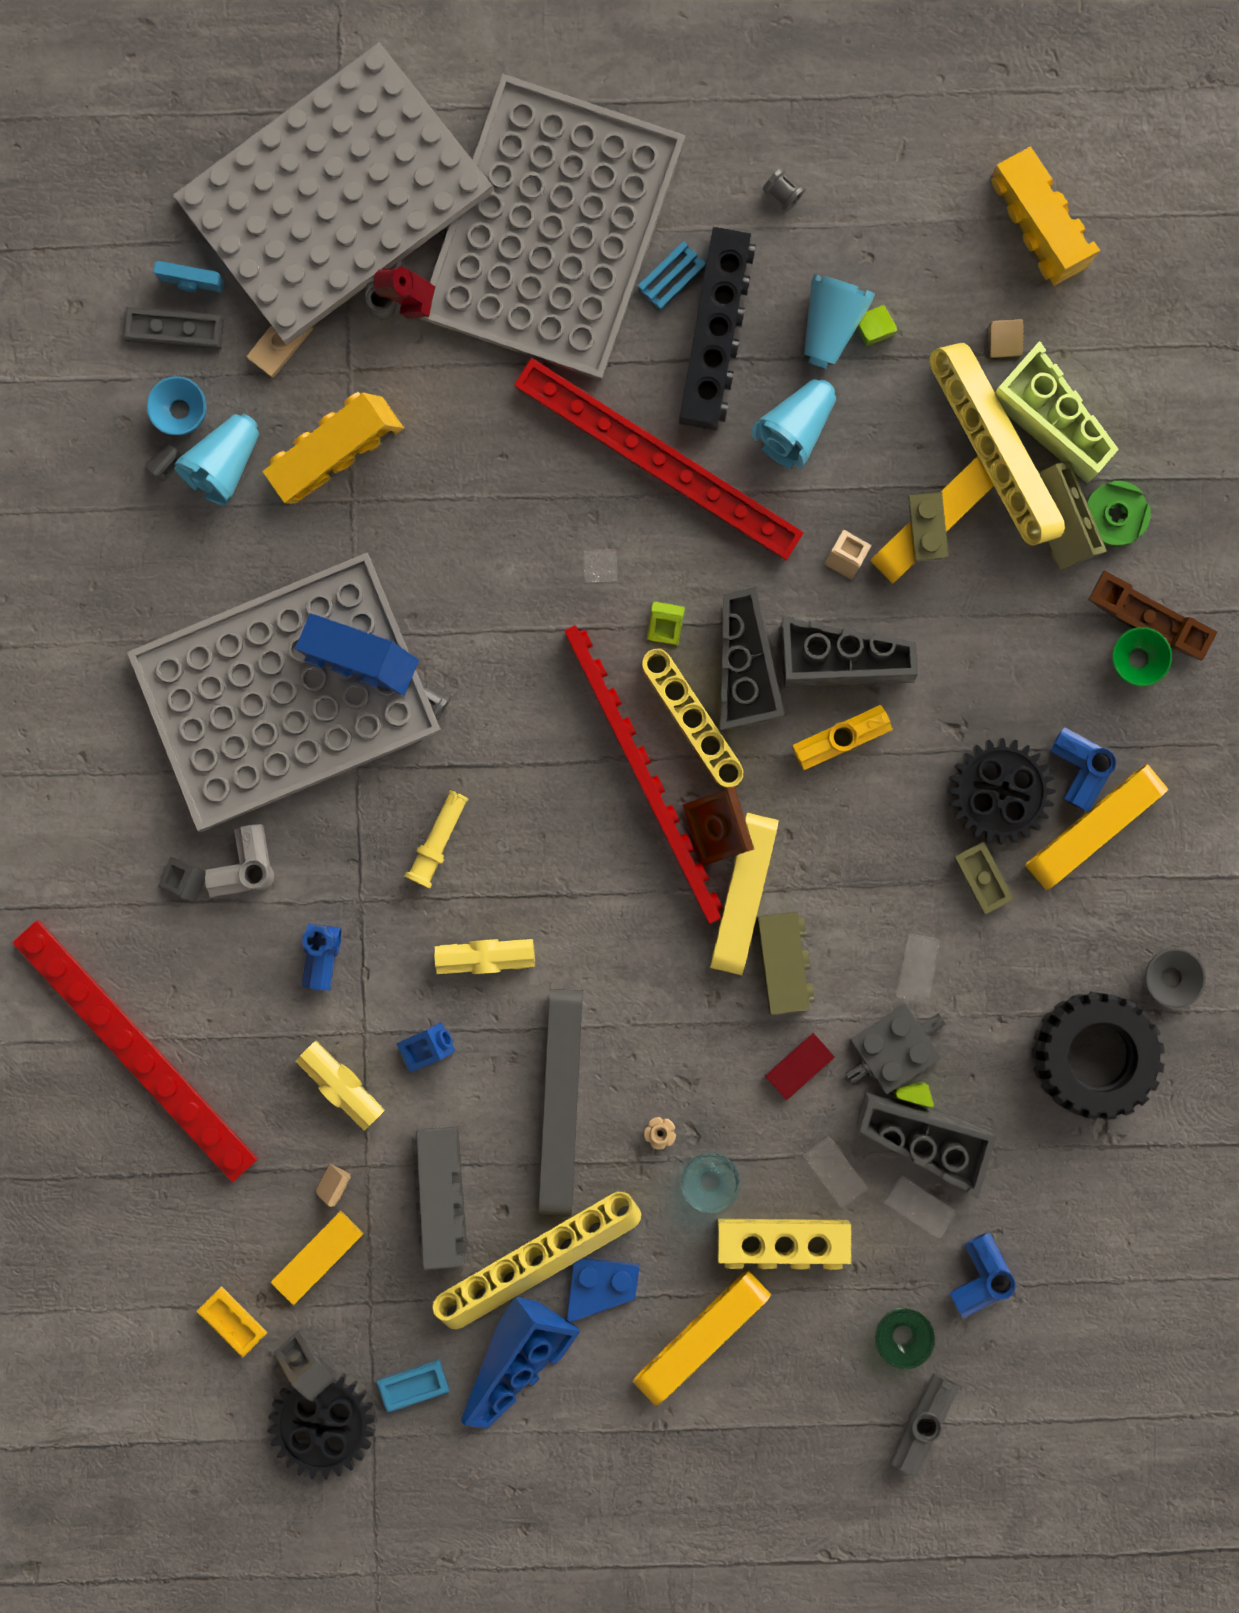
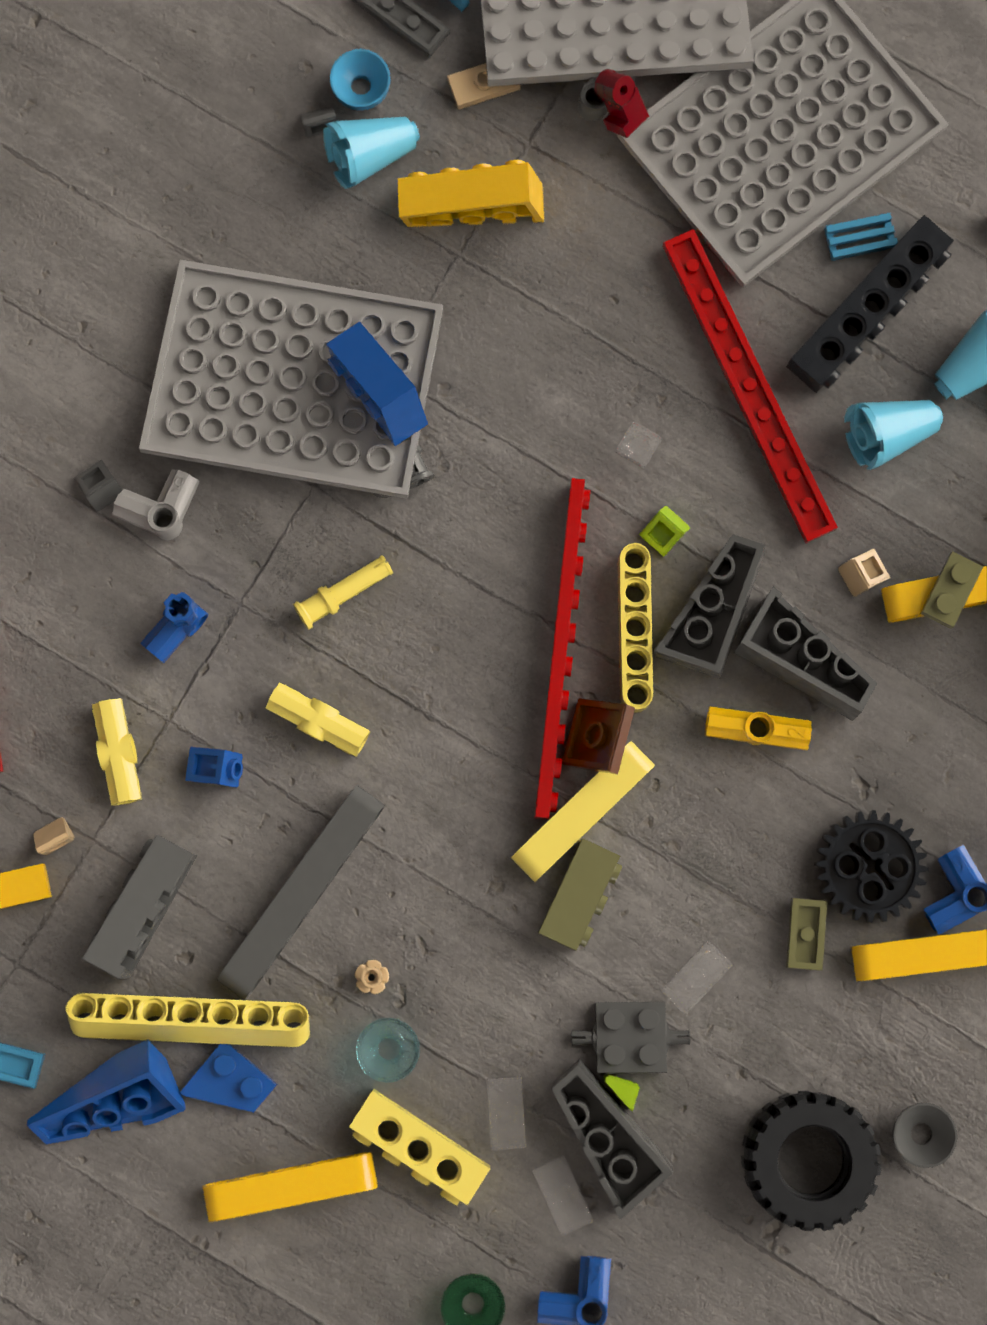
camera: 25 degrees right, 5 degrees down
(799, 1066) = (534, 997): dark red tile -> none

